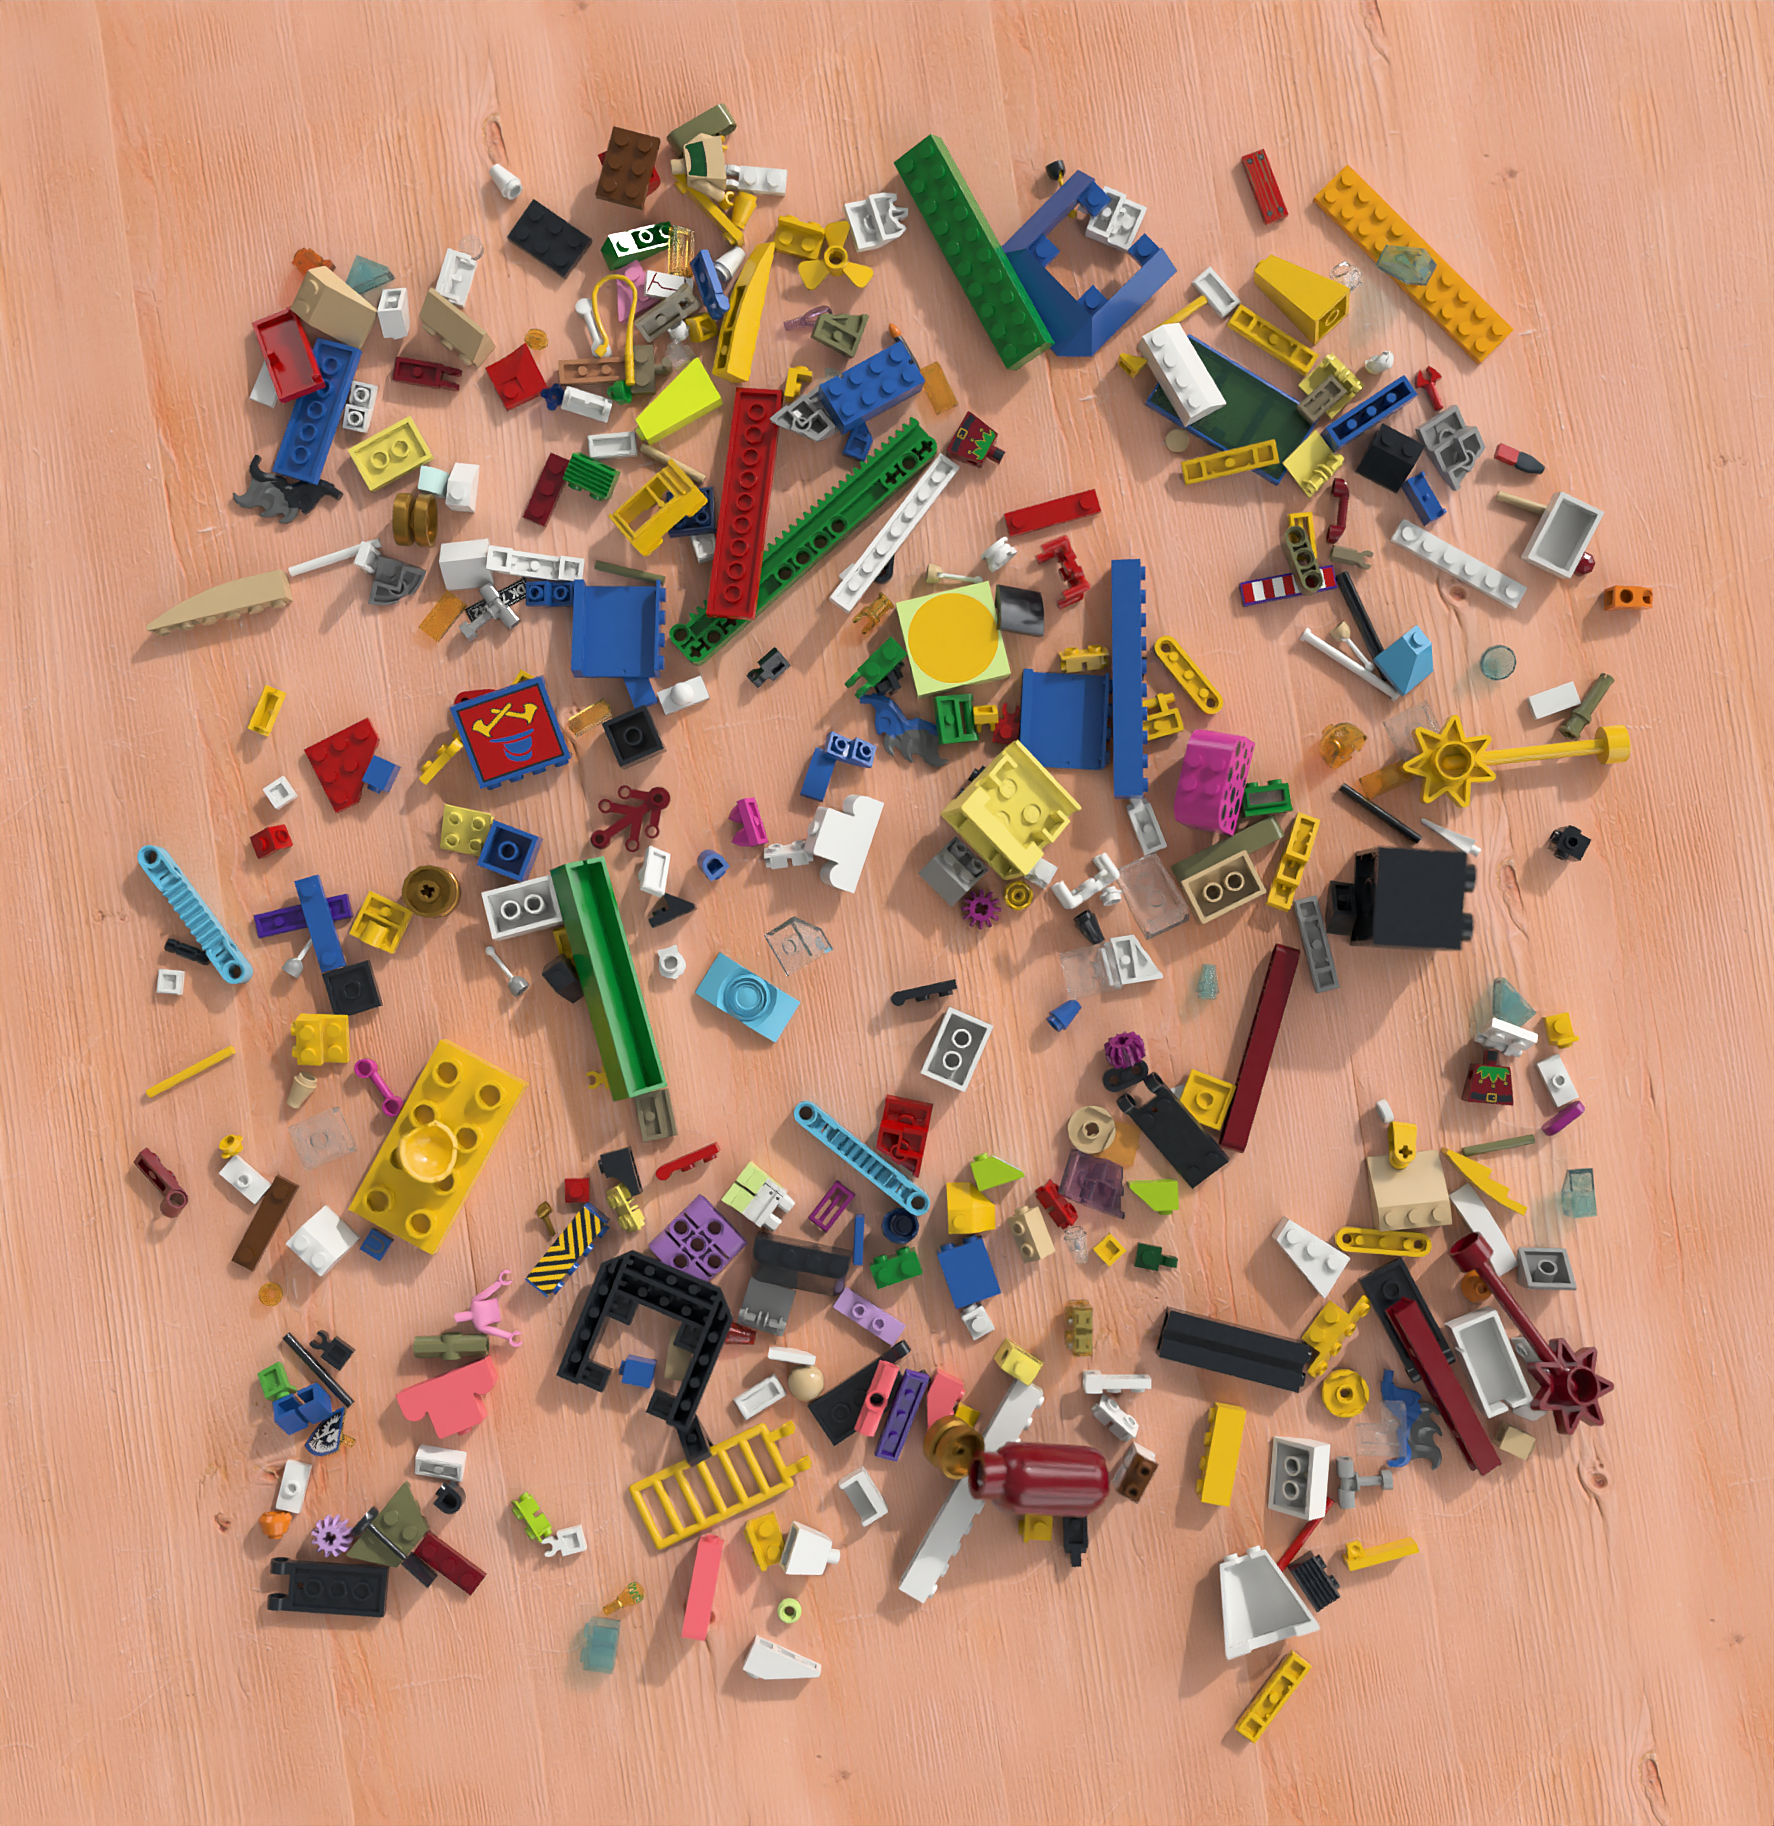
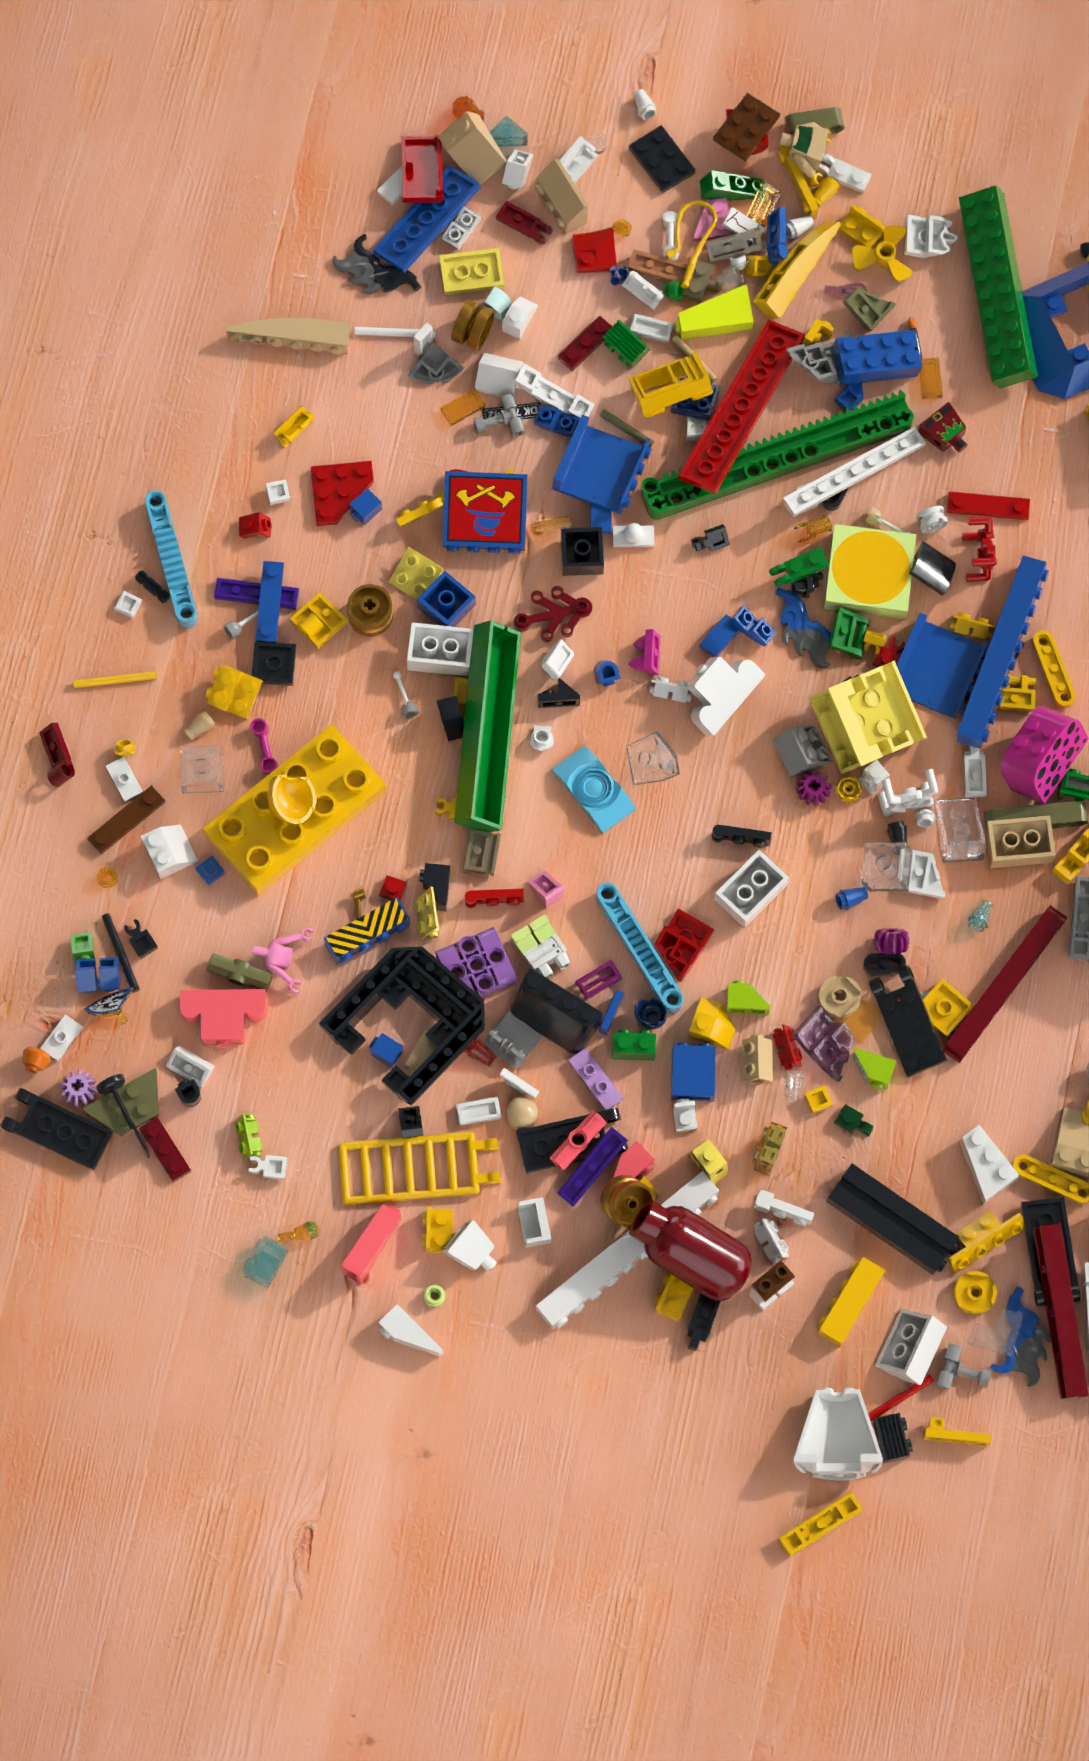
camera: 20 degrees right, 15 degrees down
(738, 1128) = (546, 889): none -> bright pink slope

